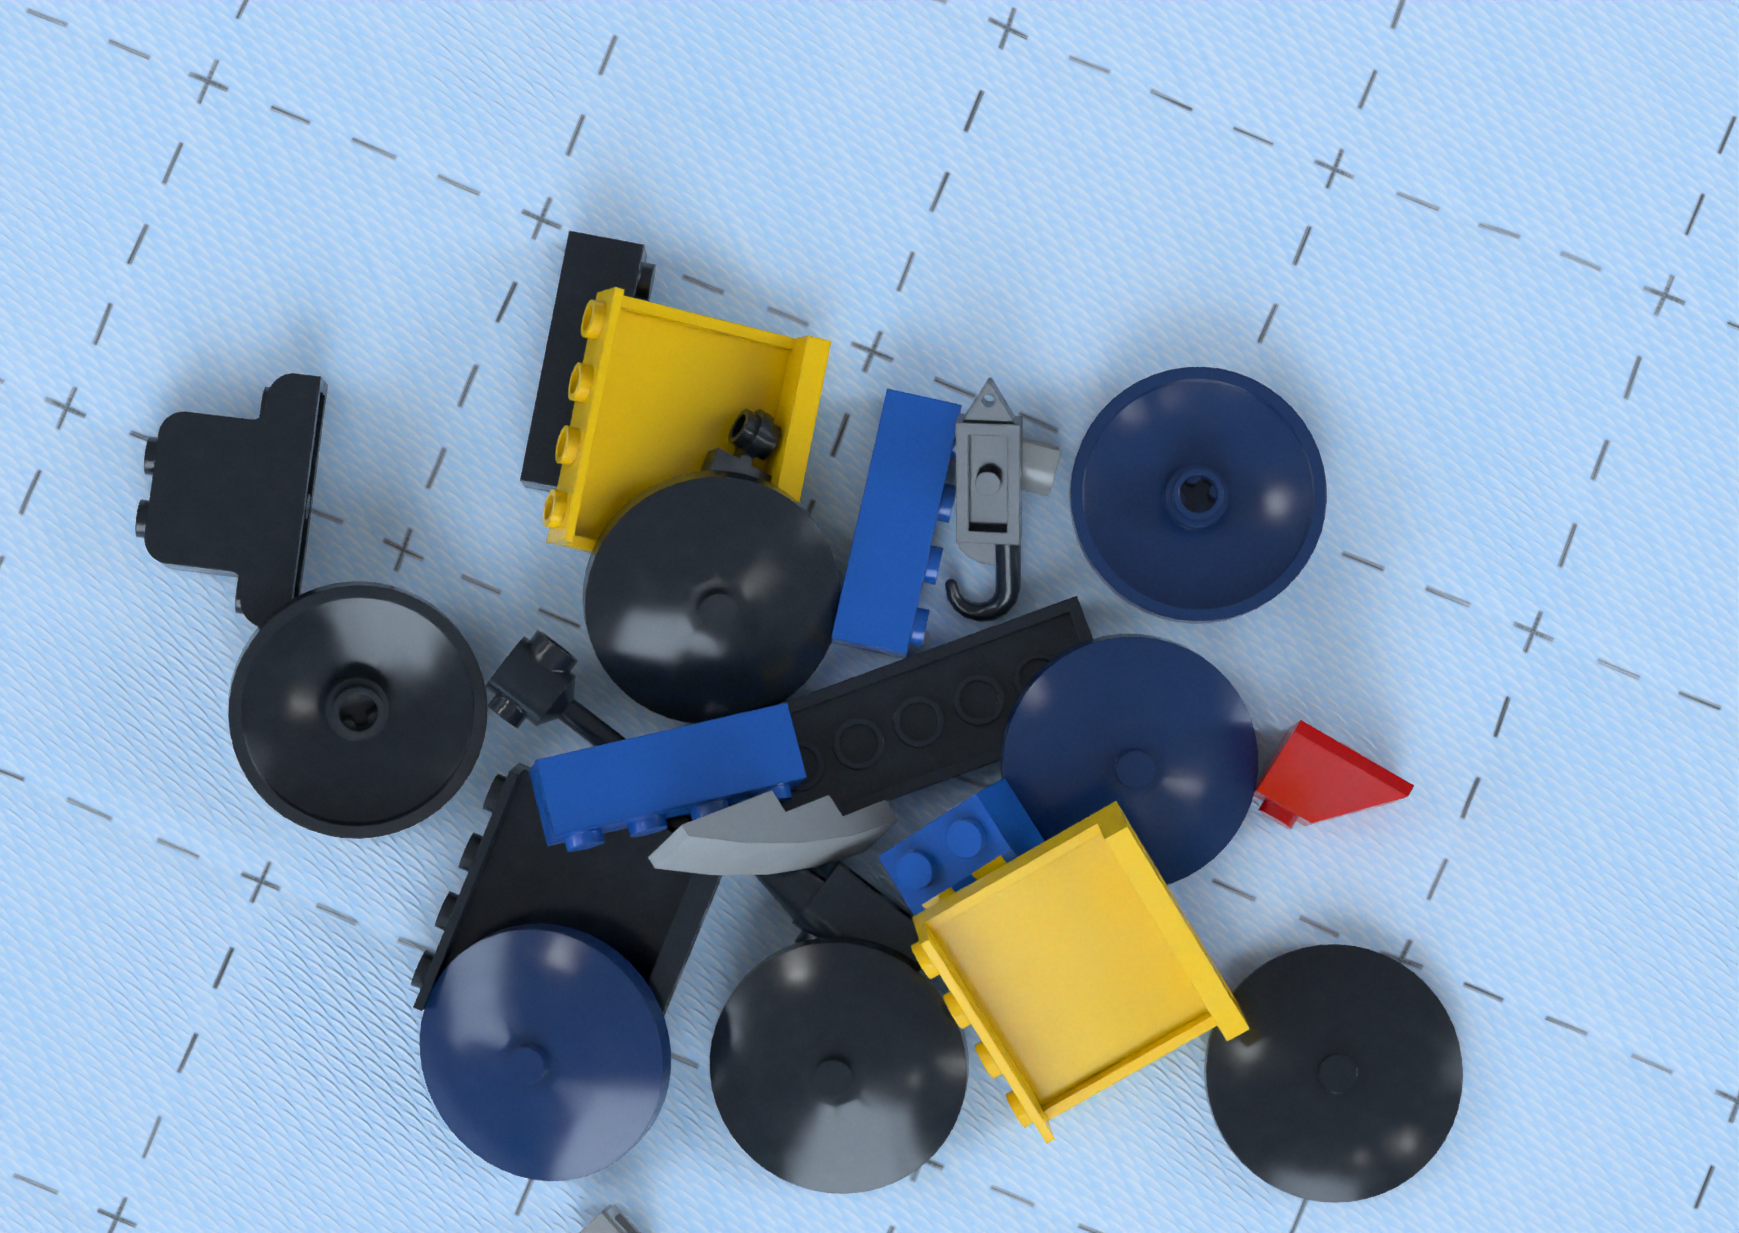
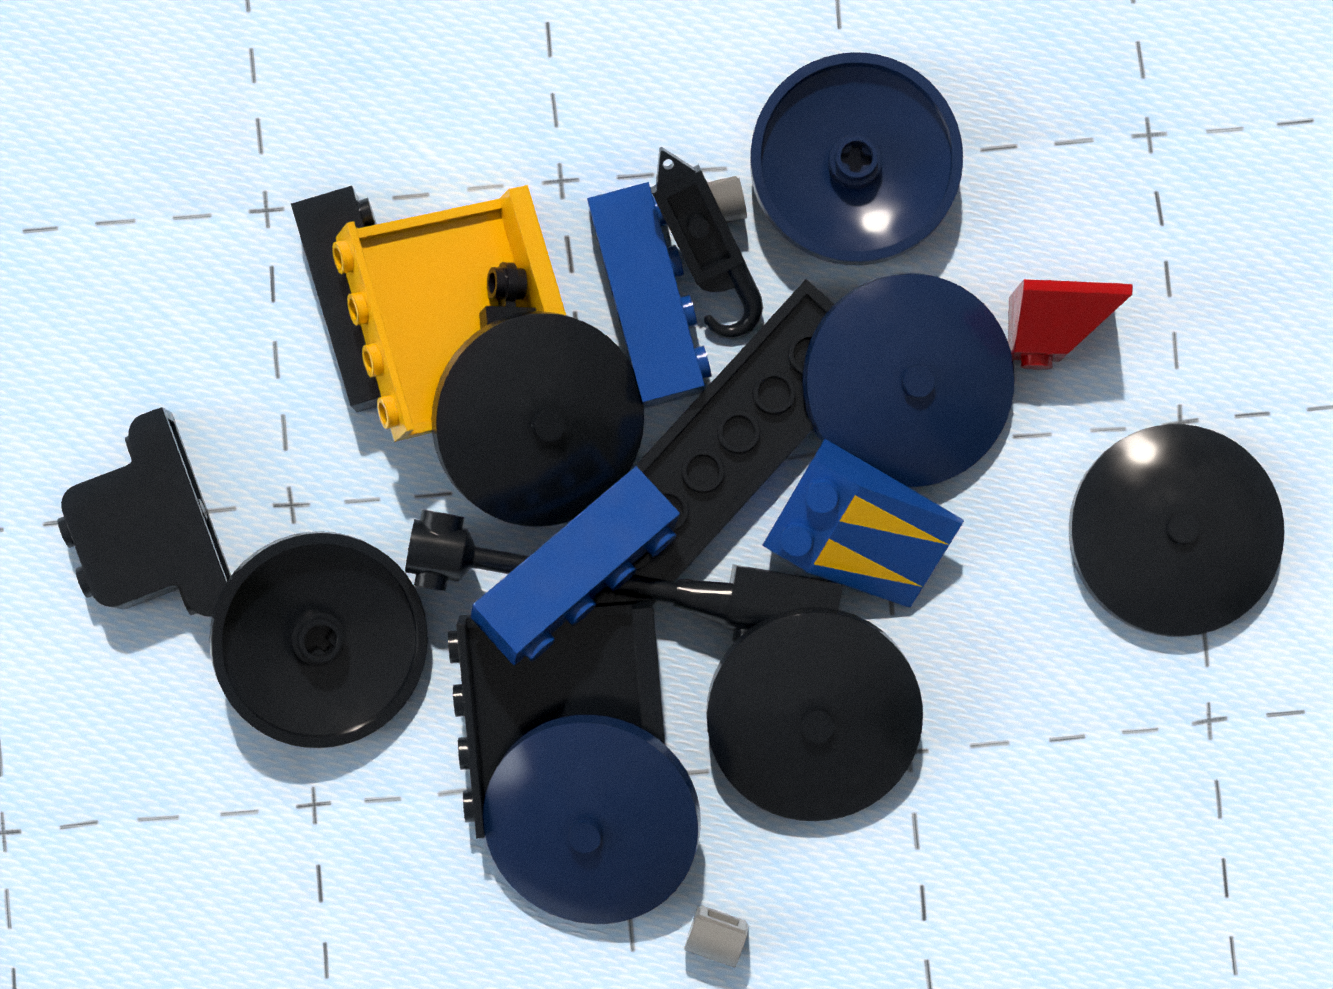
camera: 25 degrees left, 0 degrees up
(766, 840) = (675, 574): light grey slope -> none
(1073, 967) = (950, 549): yellow panel -> none

